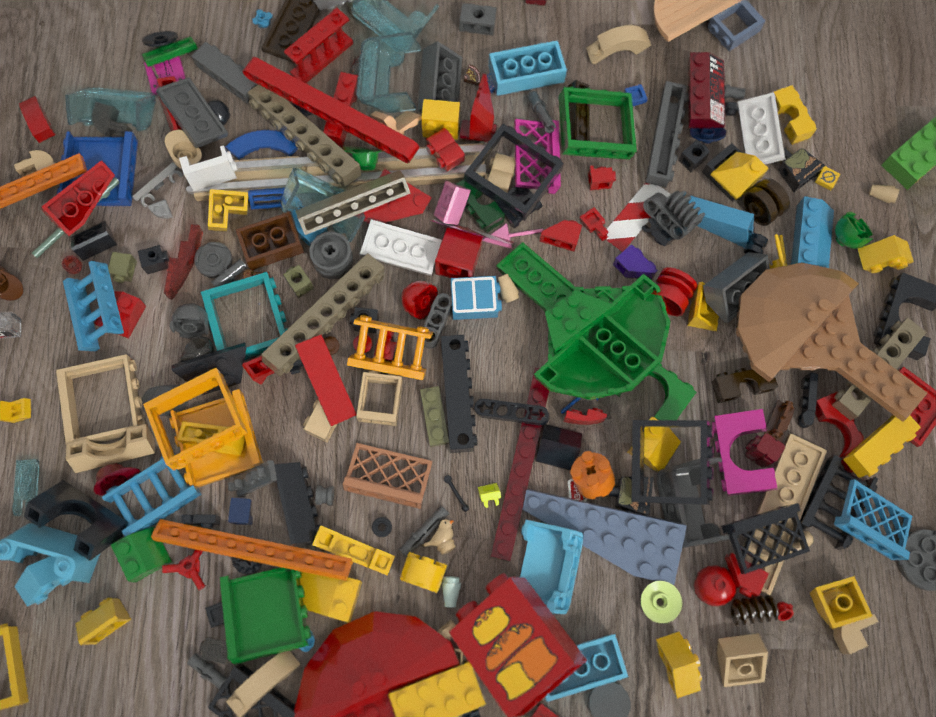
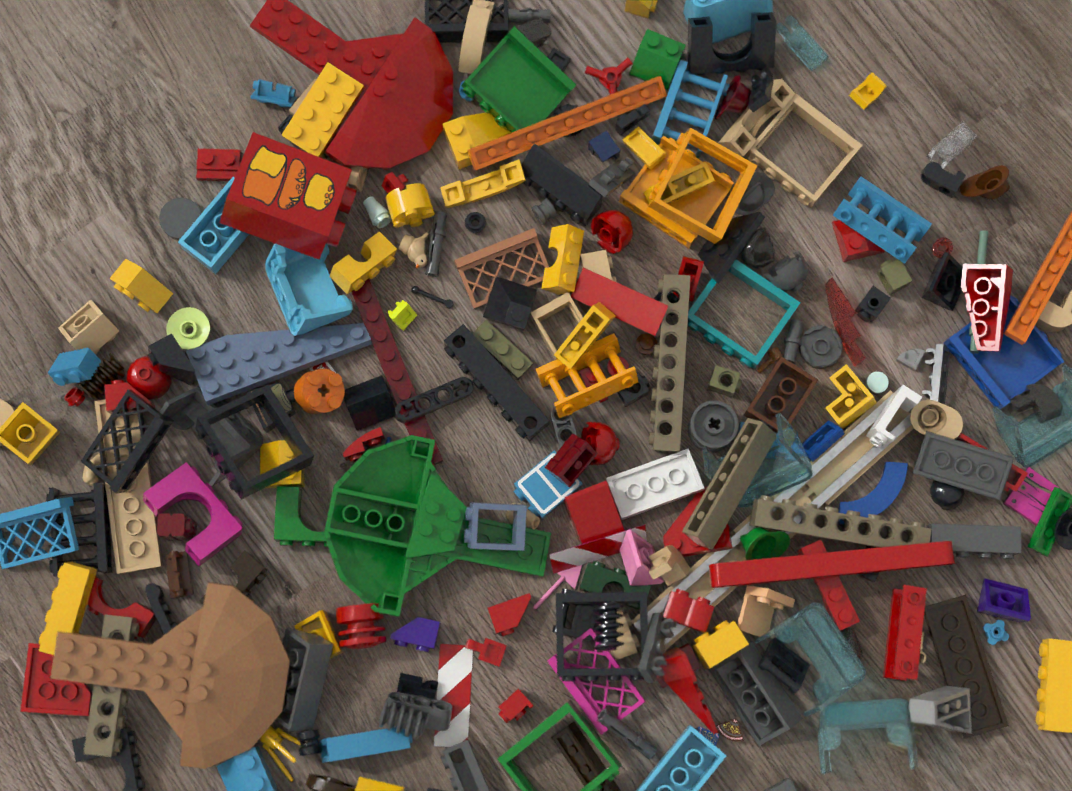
camera: 145 degrees right, 5 degrees up
(27, 309) = (941, 180): none -> black leg
(88, 464) = (761, 89): none -> black hinge
(198, 210) = (877, 382): none -> light aqua tile
(211, 490) = (644, 148): none -> yellow tile
(241, 28) = (1004, 601): none -> dark purple slope
(286, 441) = (613, 230): none -> red cylinder
(327, 453) = (563, 274): none -> yellow arch
(368, 373) = (584, 334): none -> yellow slope
(403, 442) = (510, 303): none -> black slope
(404, 83) = (787, 661): none -> black plate
(421, 602) = (392, 182): none -> red tile
(435, 185) = (669, 565): none -> tan brick
(448, 293) = (571, 460): none -> dark red brick
(473, 553) = (351, 274): none -> yellow arch
(485, 135) = (655, 647): none -> dark grey plate
(506, 163) = (608, 626): none -> black piece
(519, 274) = (518, 530): none -> sand blue window
(693, 581) = (171, 359): none -> black slope
(773, 630) = (74, 366): none -> dark azure brick

